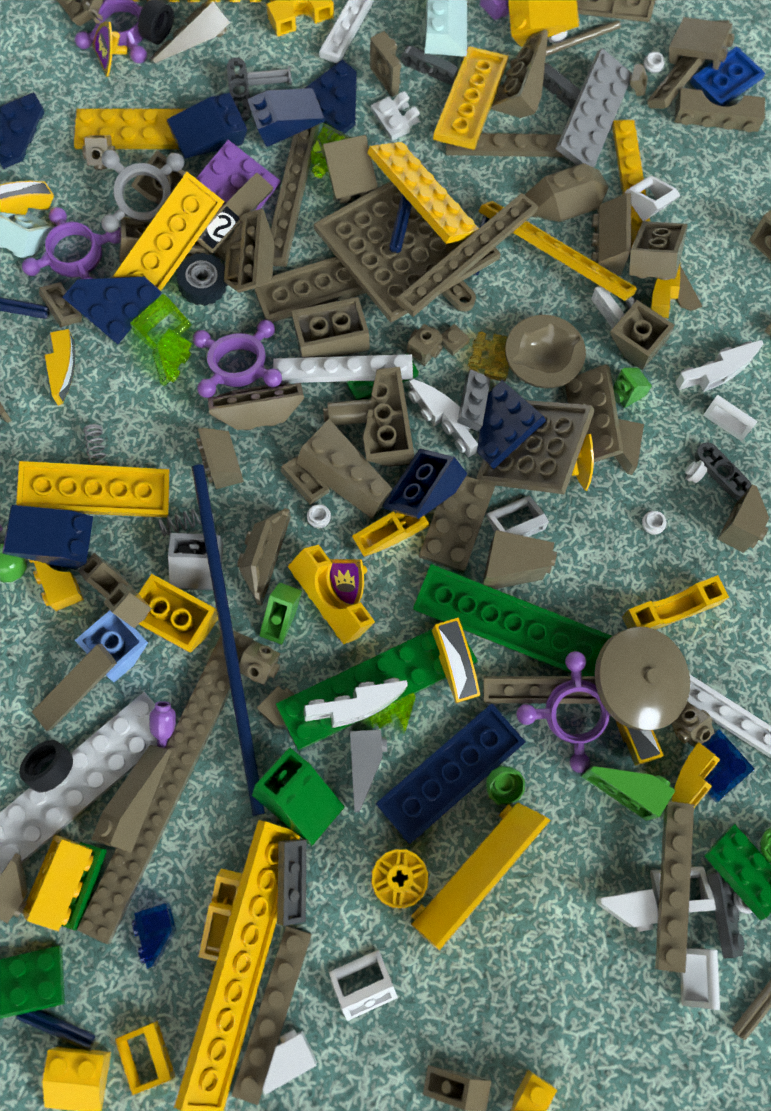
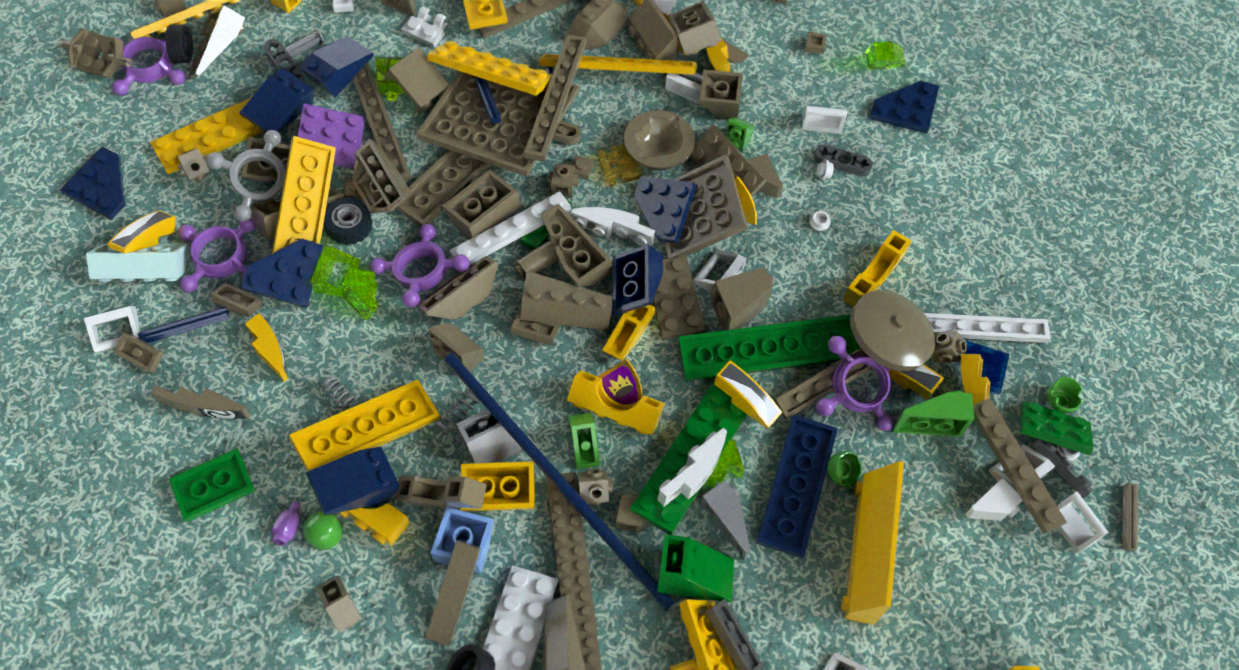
camera: 30 degrees left, 10 degrees down
(106, 44) = (145, 81): shield -> none
(162, 722) = (546, 577): medium lavender plant -> none
(229, 216) = (344, 155): dark tan slope -> none
(262, 553) = (538, 403): dark tan wedge -> none
(318, 516) = (564, 351): white plate -> none
(337, 96) = (369, 32): dark blue plate -> none
(389, 891) = (814, 598): yellow wheel -> none
(474, 400) = (629, 201): dark grey plate -> none
(717, 372) = (793, 91): white slope -> none
(746, 521) = (885, 183): dark tan slope -> none

